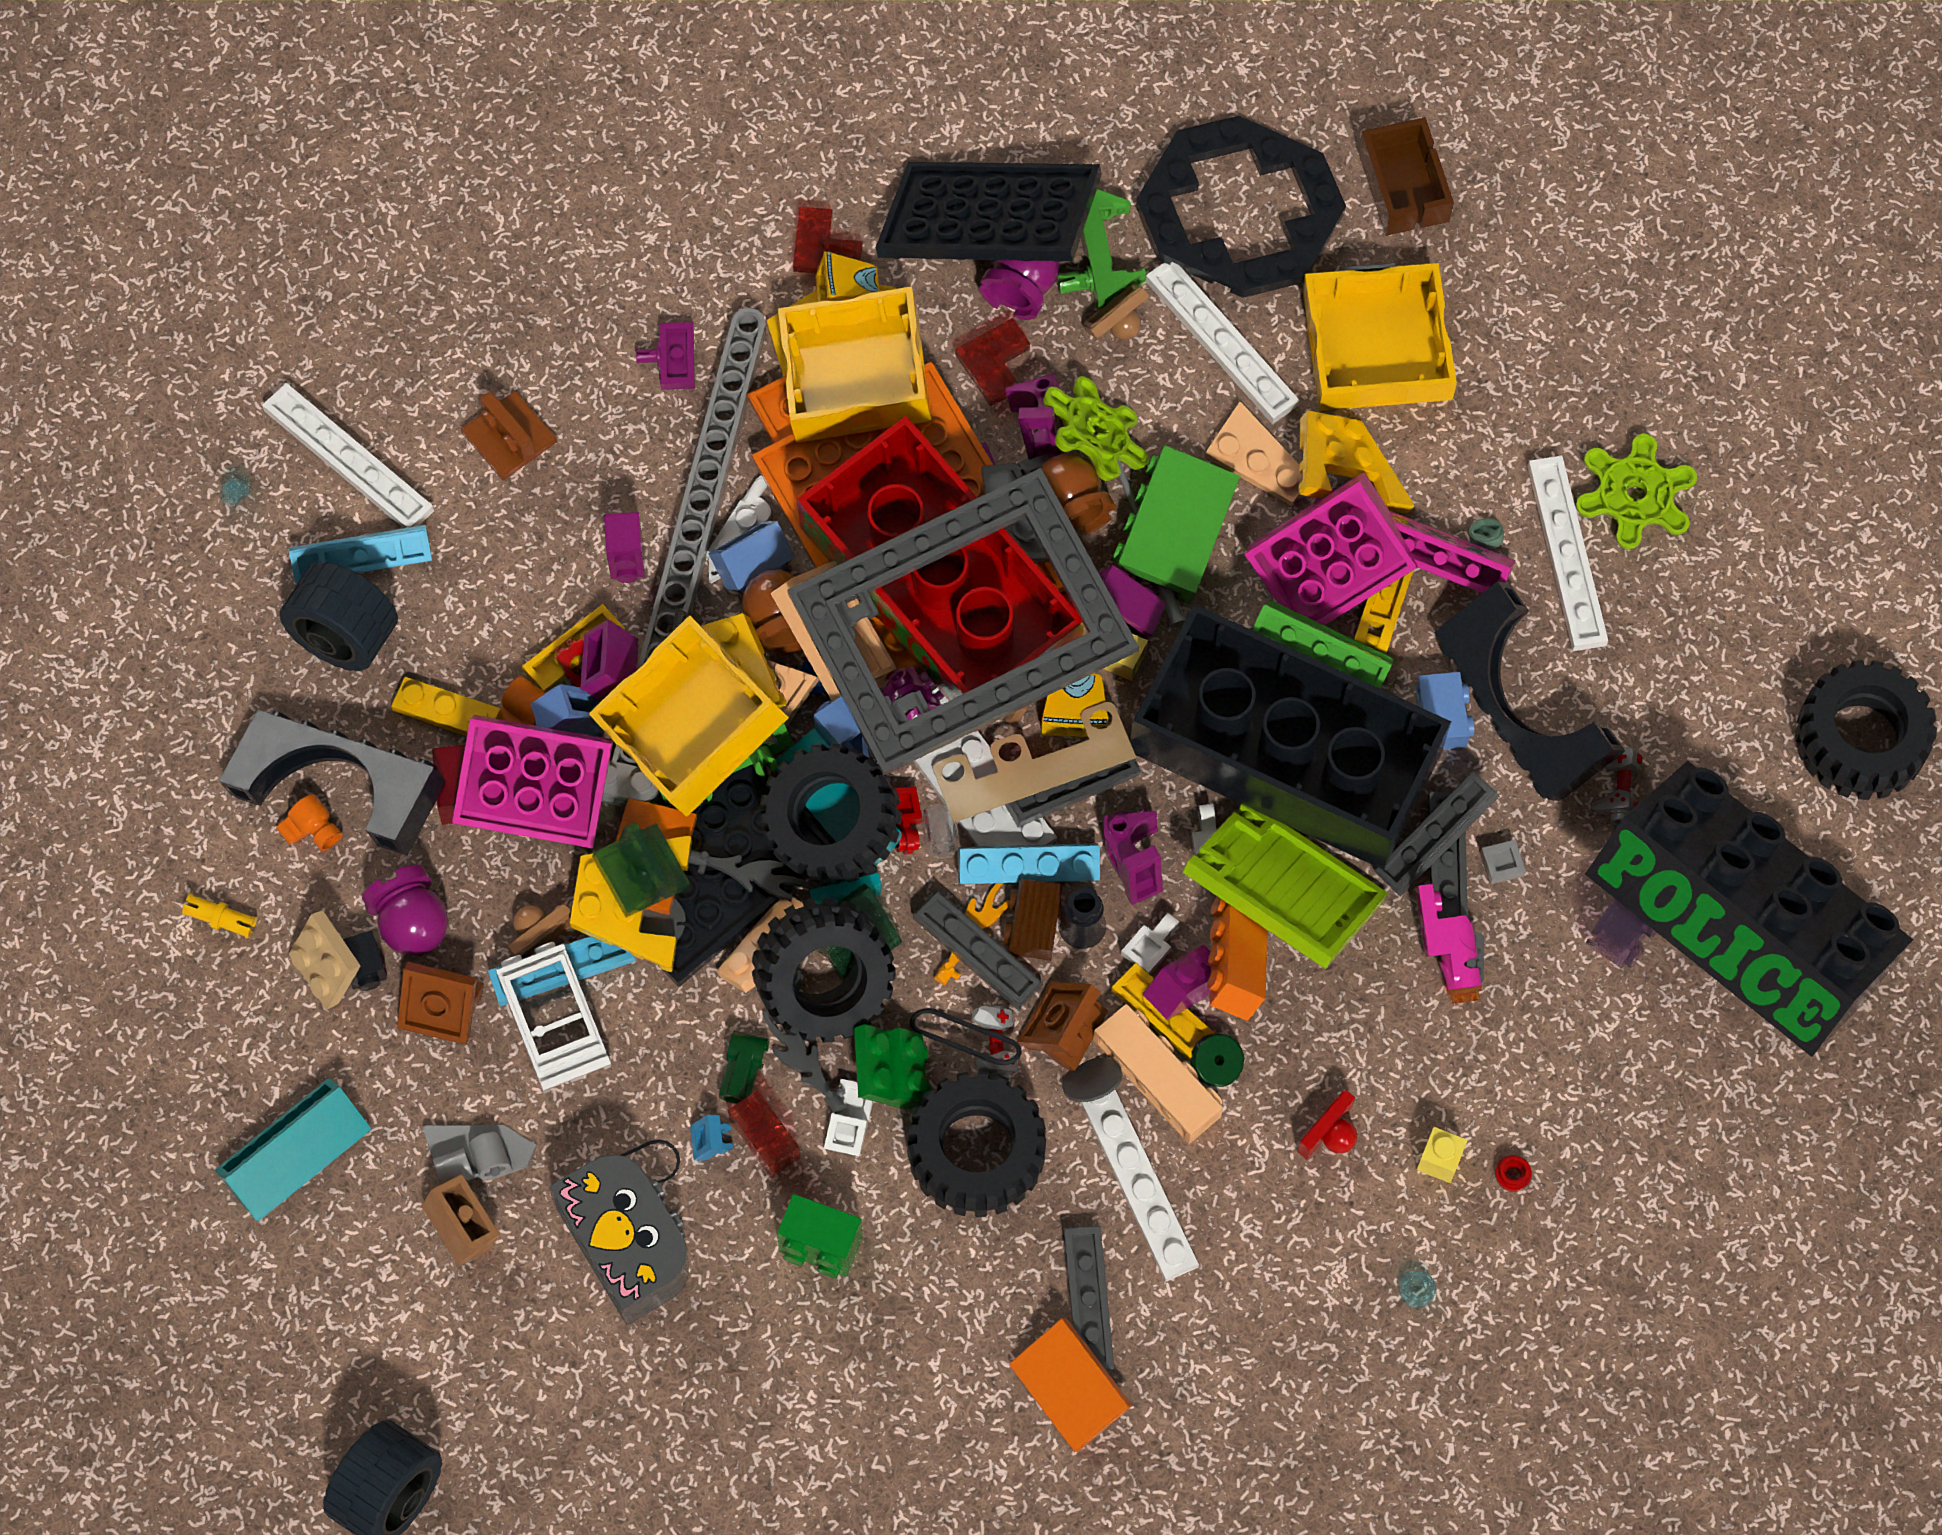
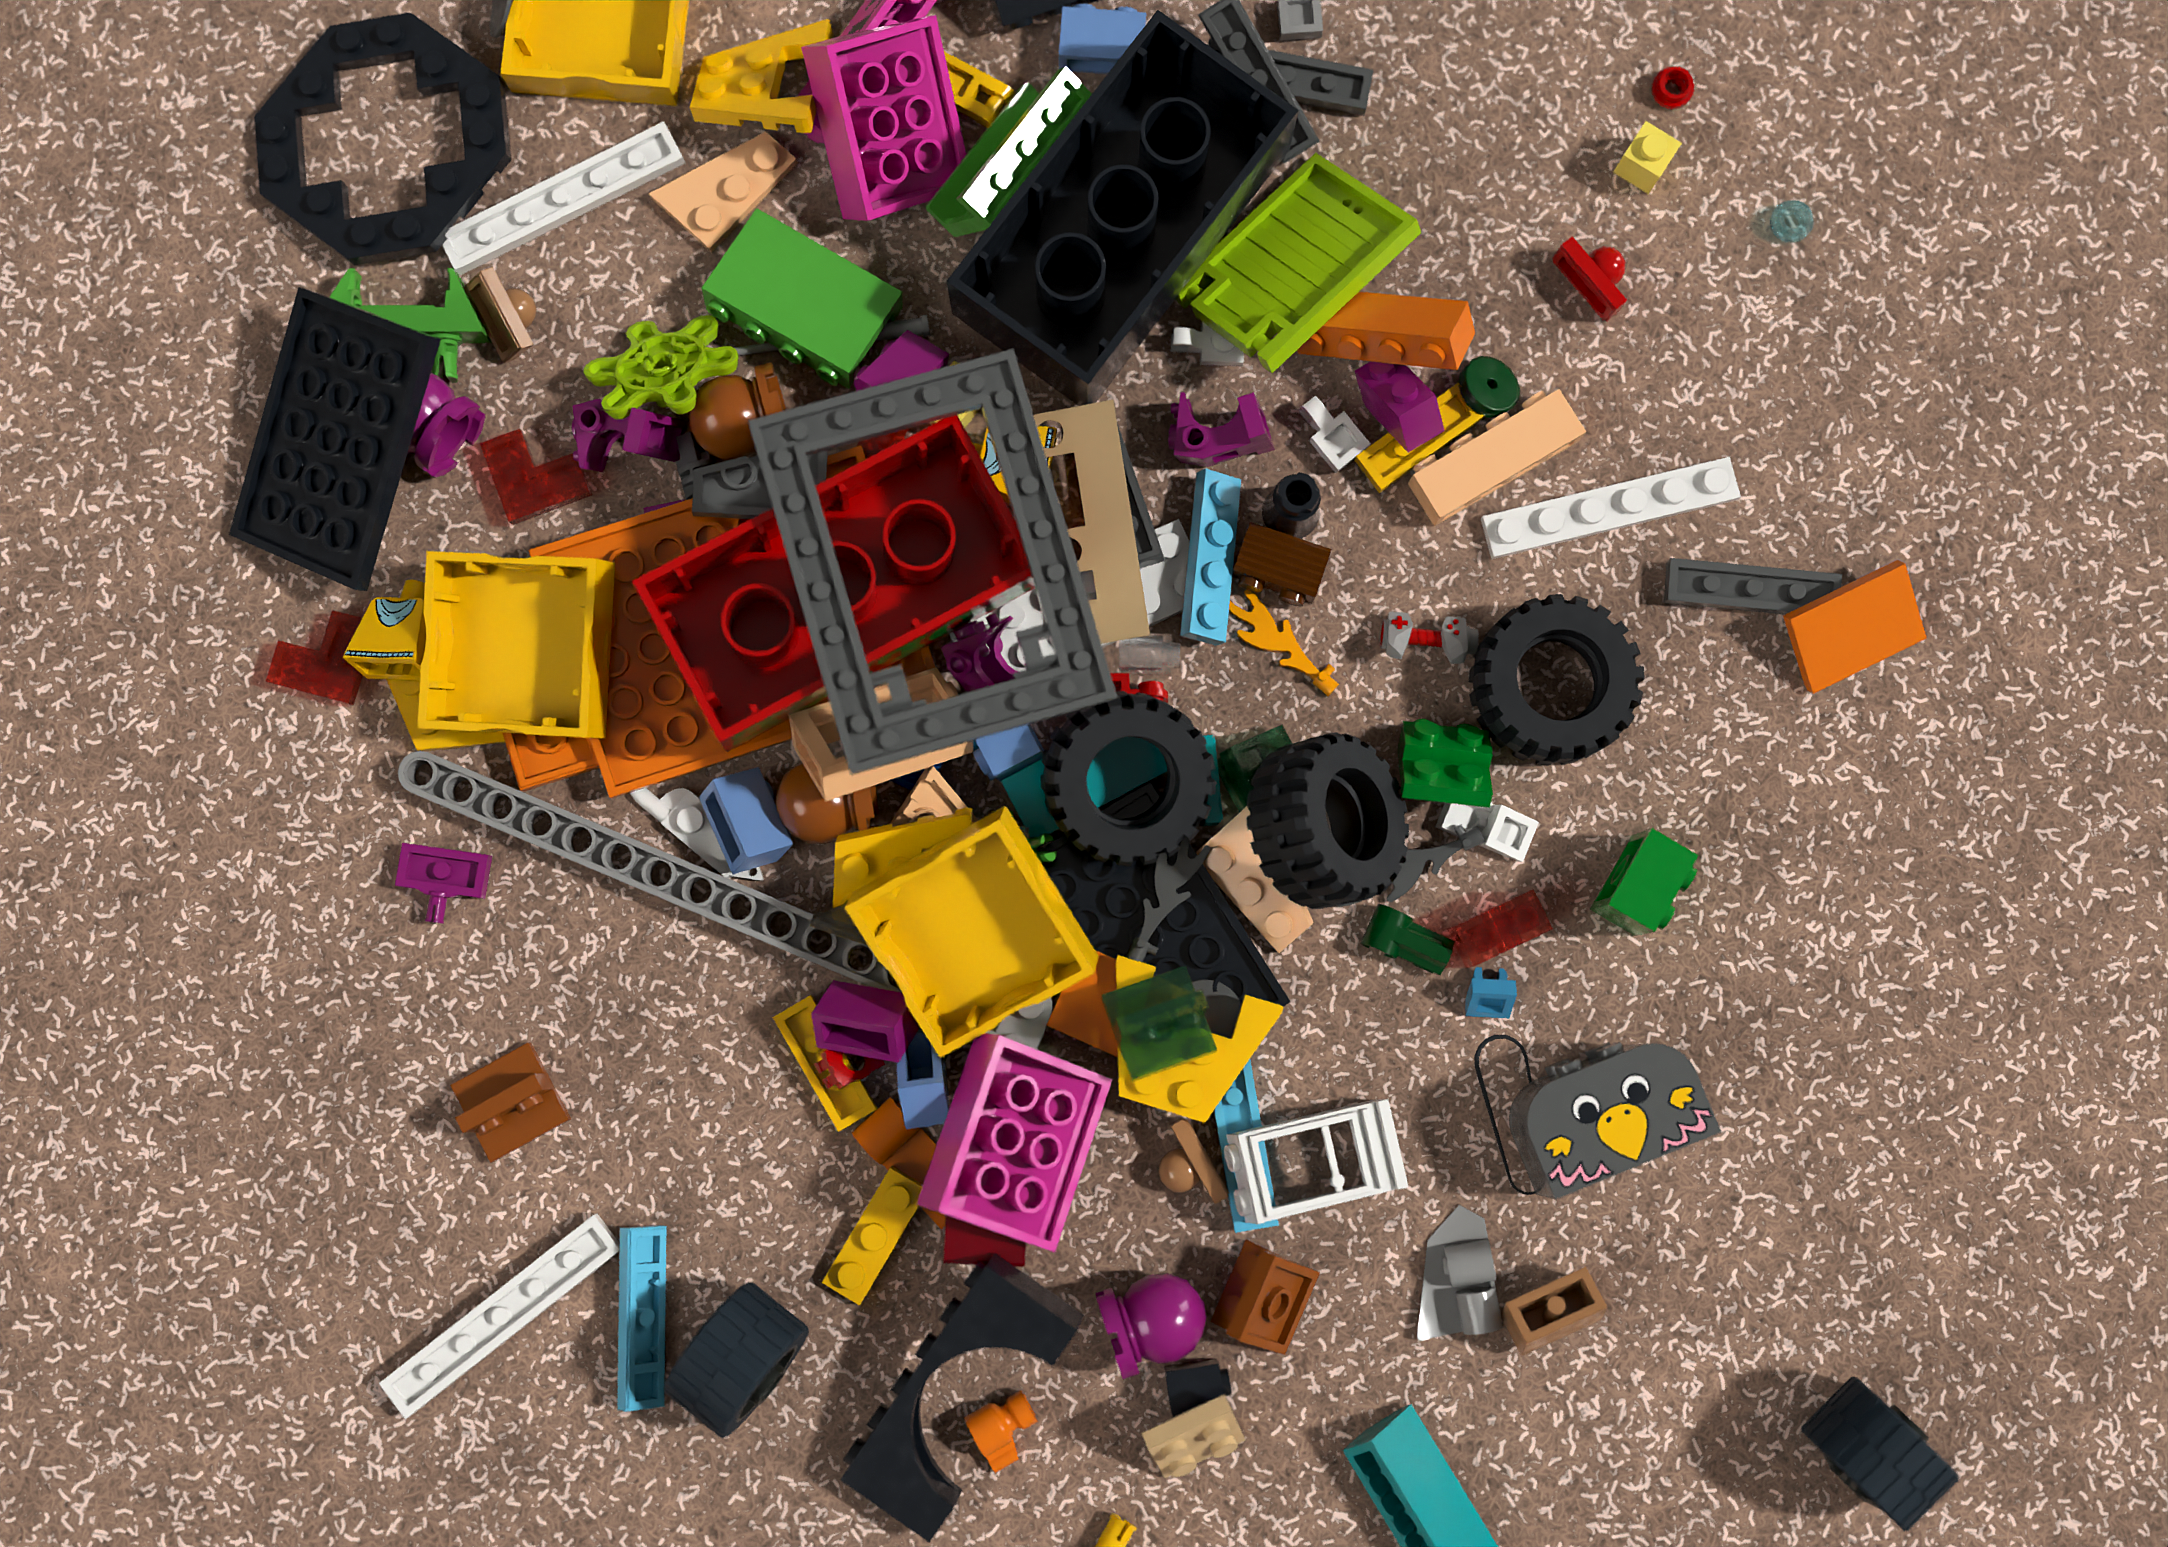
camera: 80 degrees left, 15 degrees up
(235, 490) = (520, 1469): clear light blue plate -> none
(624, 546) = (705, 977): magenta brick -> none
(961, 1047) = (1466, 626): black piece -> none
(977, 950) = (1306, 638): dark grey tile -> none
(1064, 1022) = (1415, 556): dark orange bracket -> none
(1092, 1080) = (1492, 533): dark grey piece -> none
(1456, 943) = (1398, 90): dark pink plate -> none

